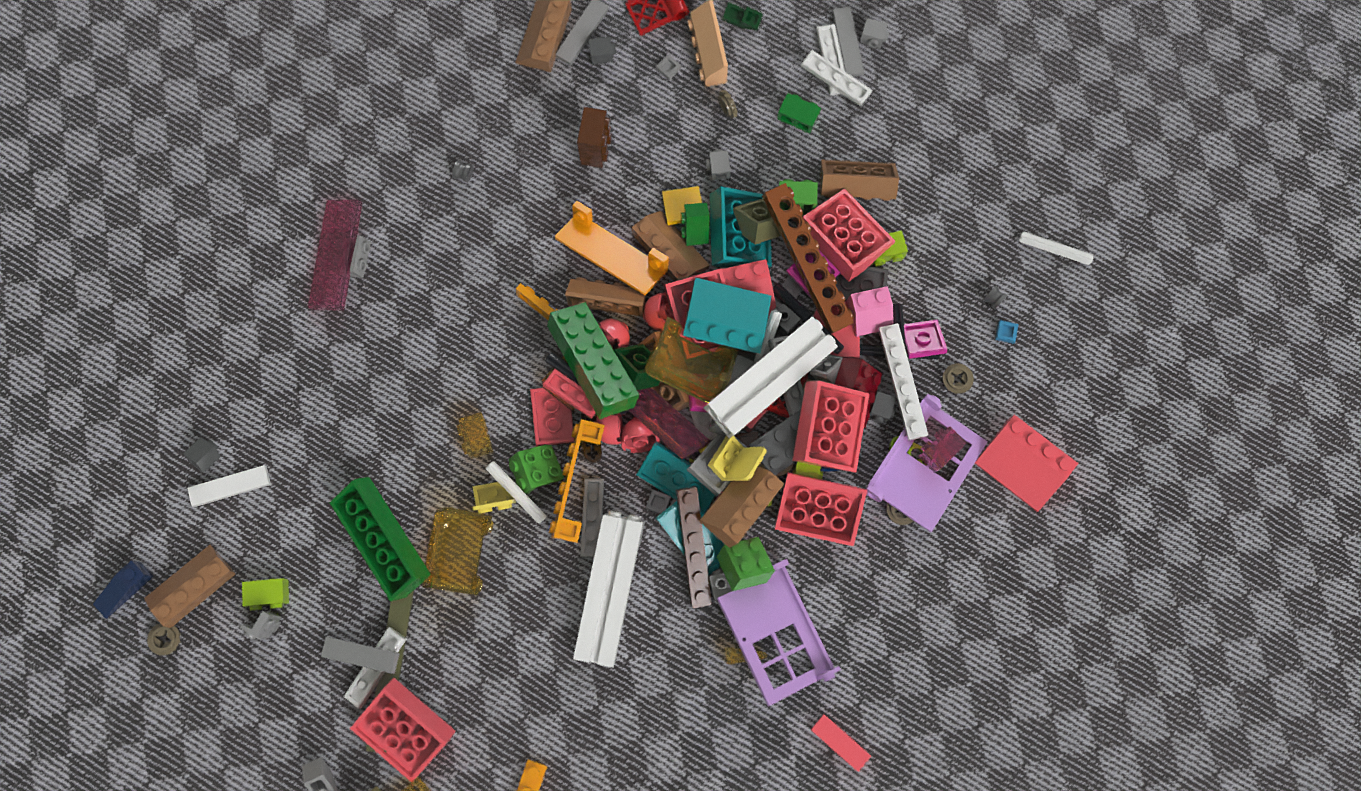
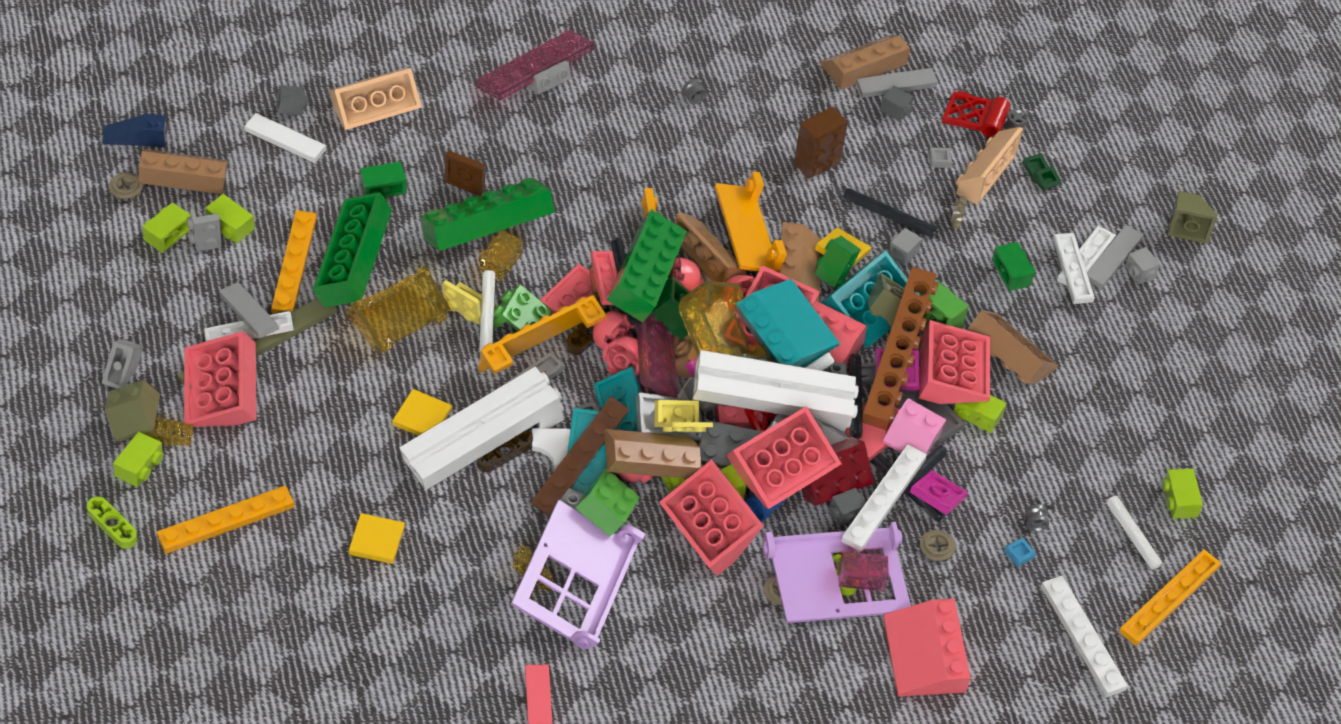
camera: 40 degrees right, 25 degrees down
(230, 644) = (166, 227): none -> lime brick
(256, 392) = (375, 98): none -> light nougat slope
(334, 455) = (384, 178): none -> green brick
(345, 580) = (294, 262): none -> light orange plate
(386, 397) = (465, 173): none -> reddish brown tile
(436, 416) = (486, 214): none -> green brick
(554, 611) = (421, 413): none -> yellow tile
(624, 735) = (376, 538): none -> yellow tile
(641, 569) = (501, 459): none -> dark brown beam
(658, 546) = (551, 443): none -> white tile
(682, 145) = (891, 213): none -> black axle
(1058, 190) = (1182, 493): none -> lime brick
(1098, 355) = (1084, 636): none -> white plate
(1121, 276) = (1170, 597): none -> light orange plate

